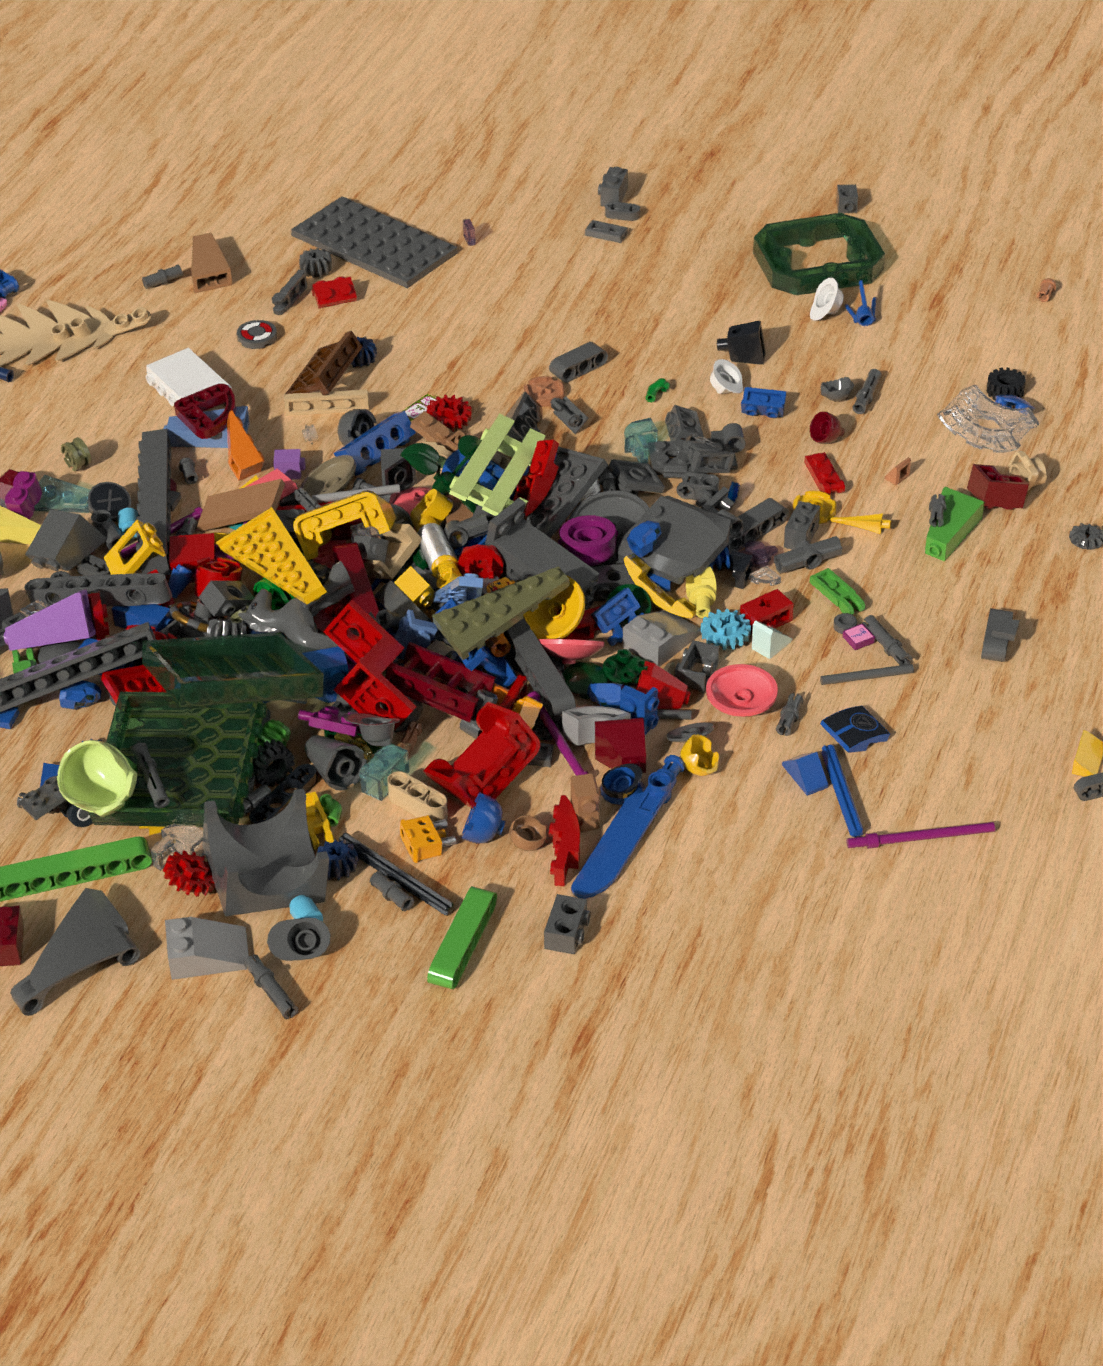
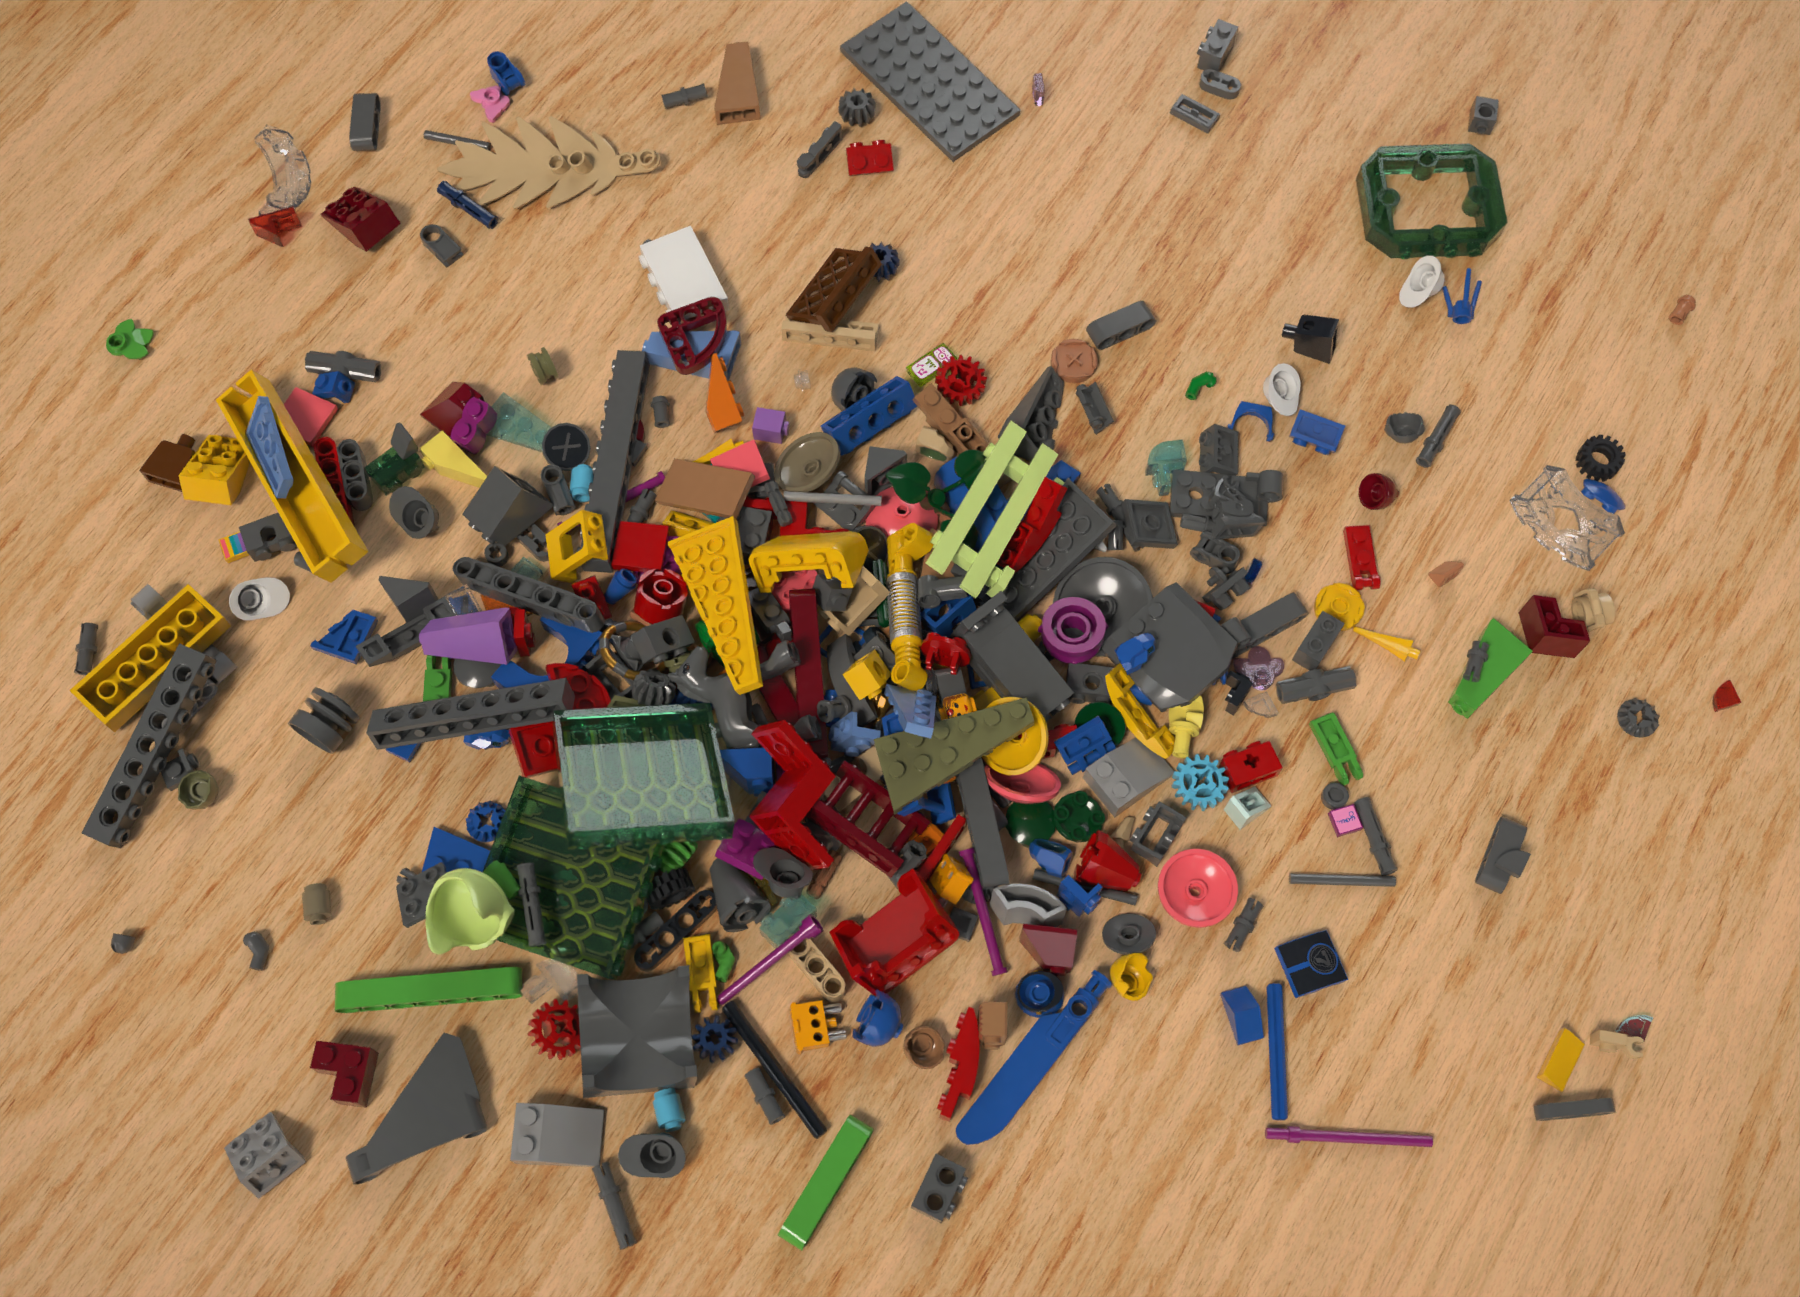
camera: 10 degrees right, 25 degrees up
(256, 334) = (772, 207): dark grey tile -> none
(405, 759) = (809, 928): none -> magenta piece
(710, 397) = (1257, 410): none -> blue helmet

